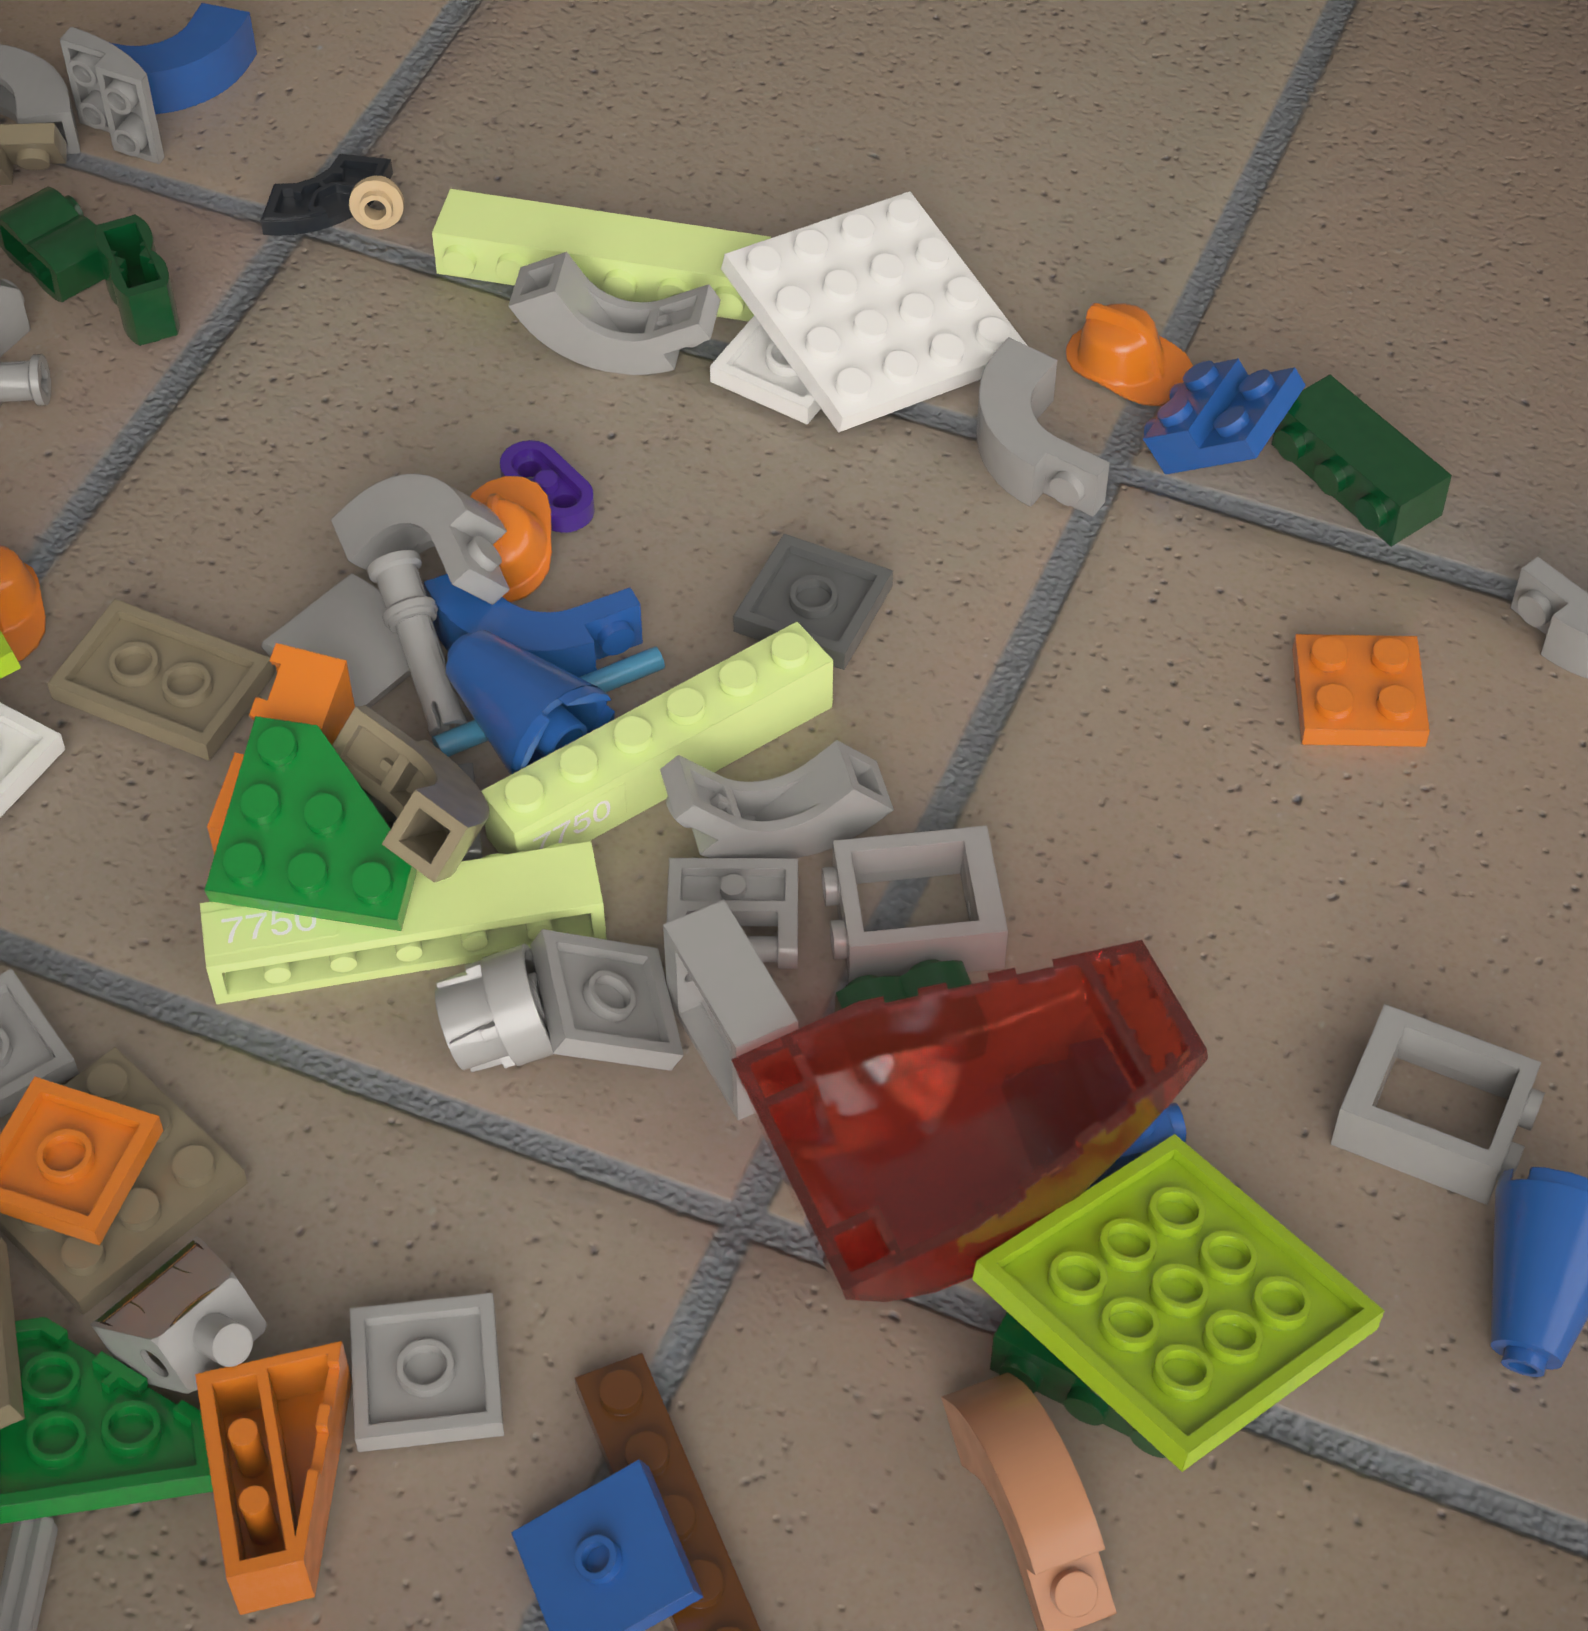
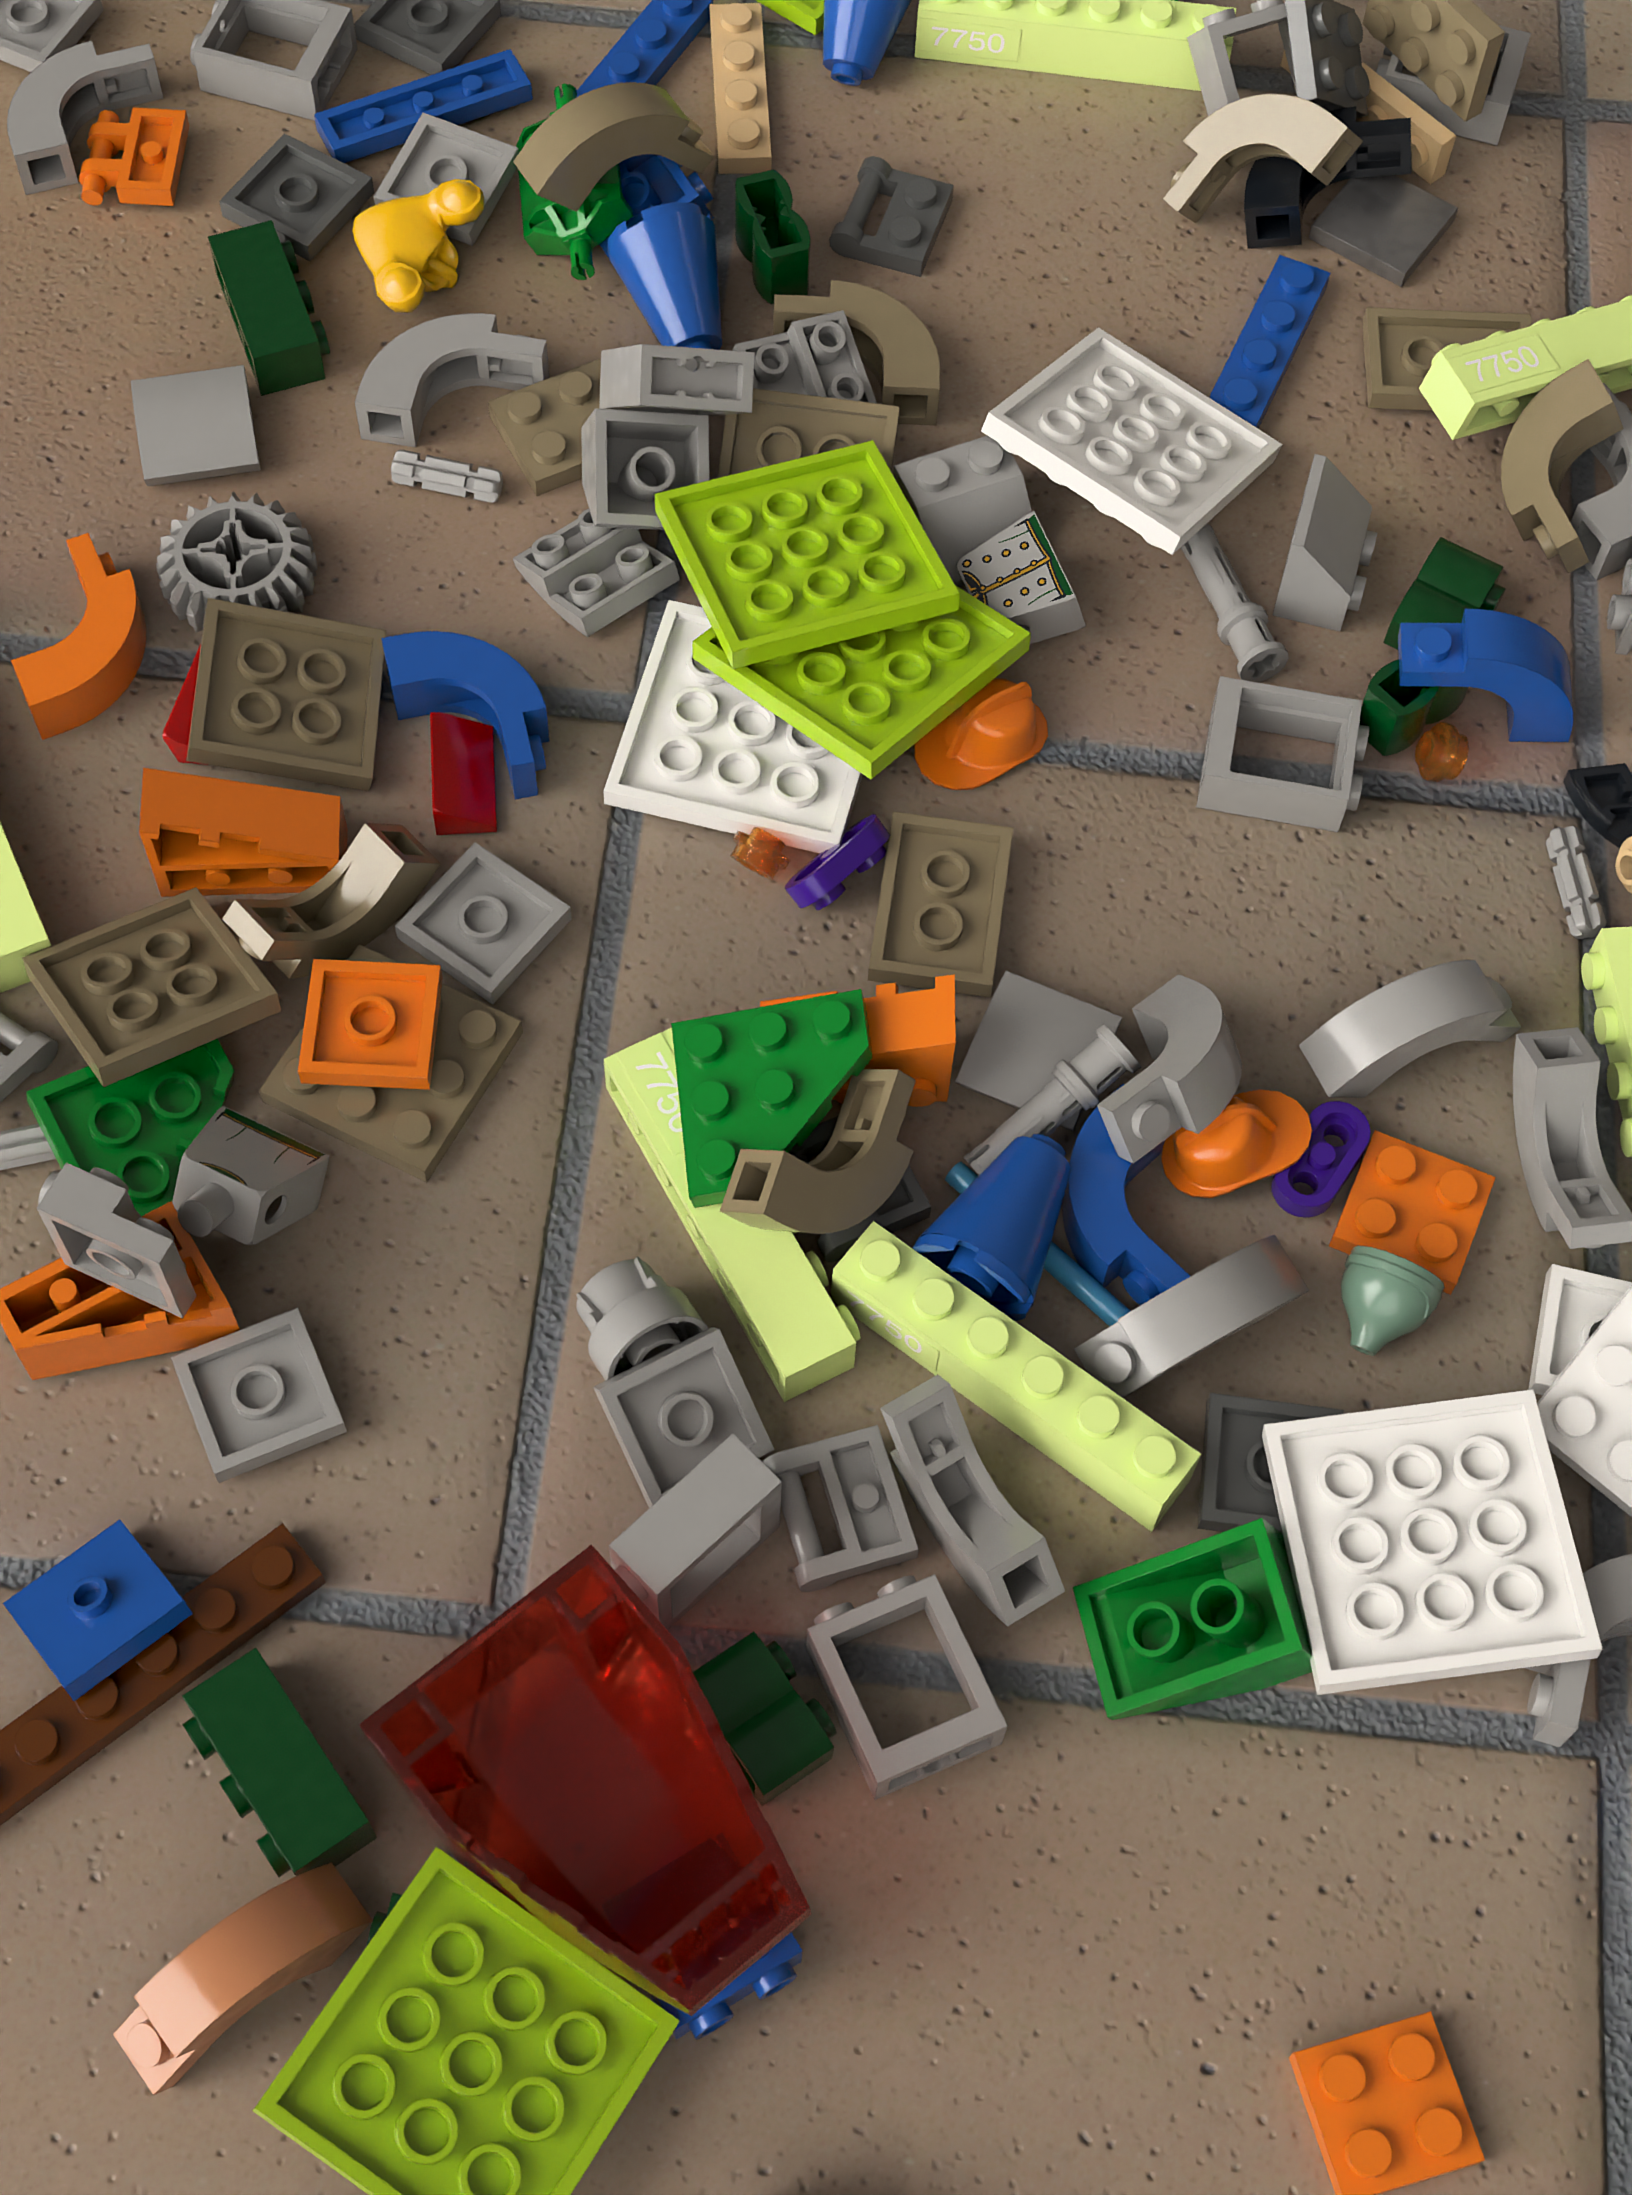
camera: 70 degrees right, 10 degrees up
(31, 802) = (760, 852): none -> clear orange plate
(85, 753) = (822, 877): none -> dark purple plate
(145, 445) = (1290, 714): none -> light grey window
(155, 205) = (1500, 656): none -> blue arch
(210, 285) = (1441, 753): none -> clear orange plate
(237, 1405) = (109, 1240): none -> light grey plate
(367, 251) = (1575, 882): none -> light grey axle
(460, 385) = (1406, 1021): none -> light grey arch
(623, 446) = (1414, 1207): none -> orange plate
(672, 596) = (1192, 1316): none -> light grey arch
(694, 476) = (1385, 1297): none -> sand green helmet
(829, 1429) = (275, 1768): none -> dark green brick
(926, 500) = (1429, 1542): none -> white plate
(933, 682) = (1195, 1623): none -> green slope

